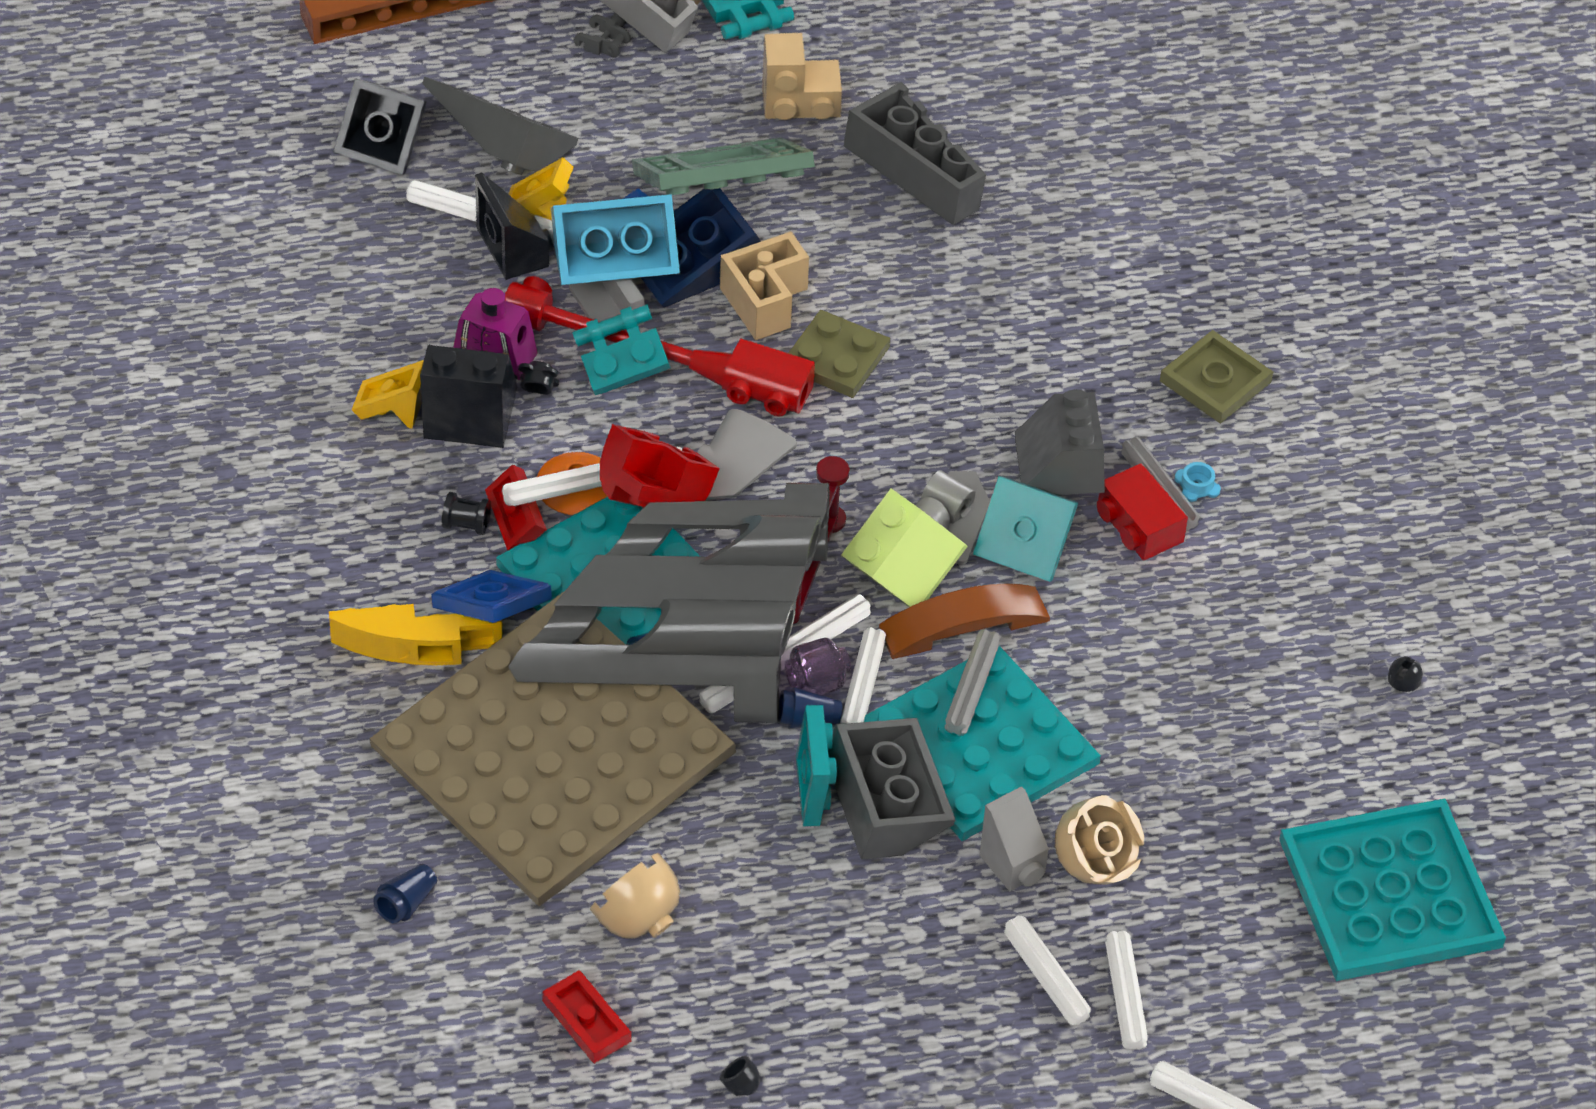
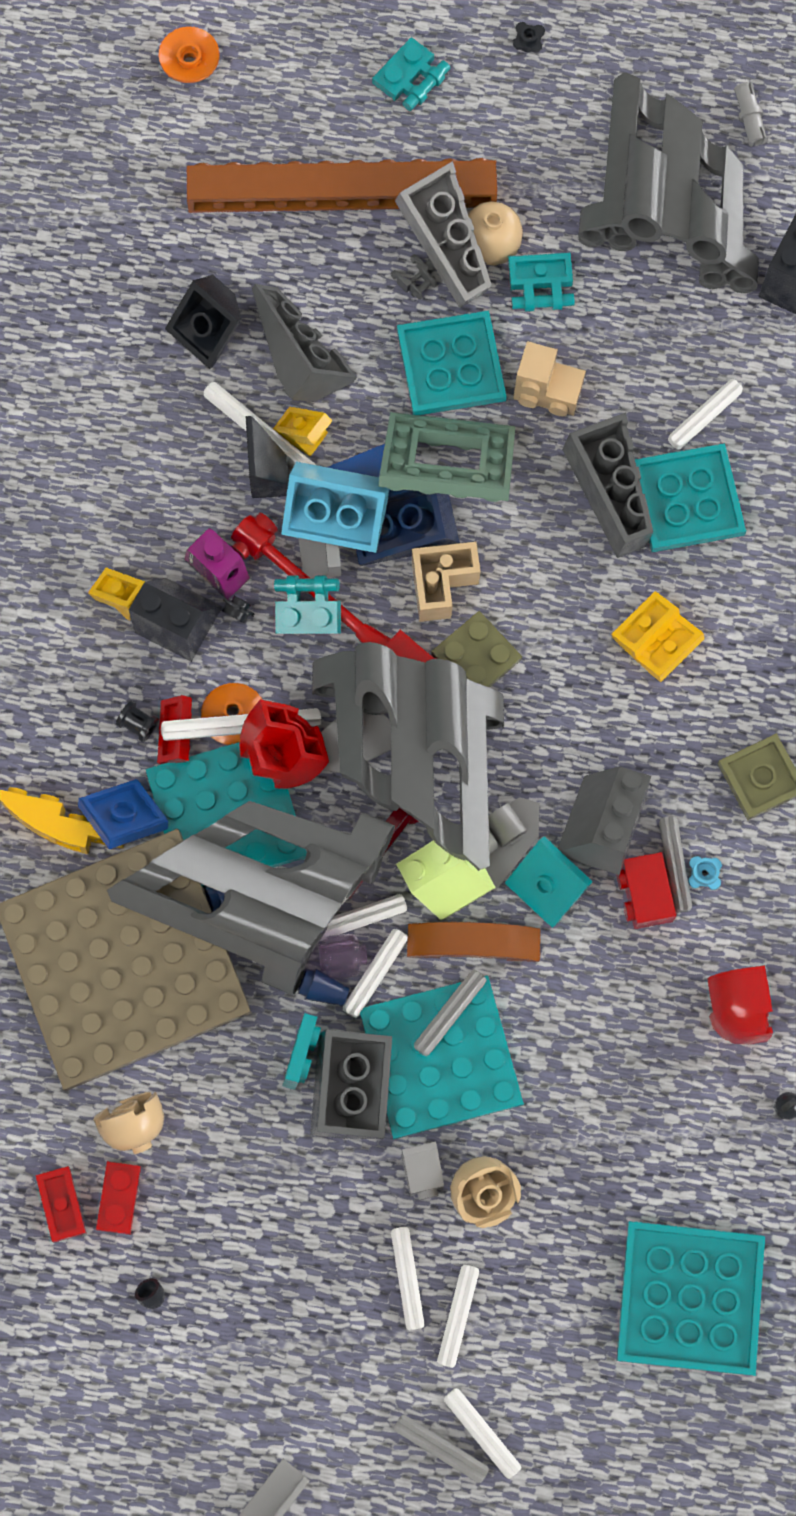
camera: 20 degrees right, 25 degrees up
(655, 993) = (118, 1198): none -> red plate
(681, 99) = (451, 363): none -> teal plate
(819, 397) = (429, 711): none -> dark grey panel
(986, 77) = (705, 414): none -> white axle
(1014, 149) = (691, 497): none -> teal plate
(1034, 284) = (658, 636): none -> yellow slope
(1305, 580) = (741, 1005): none -> red brick

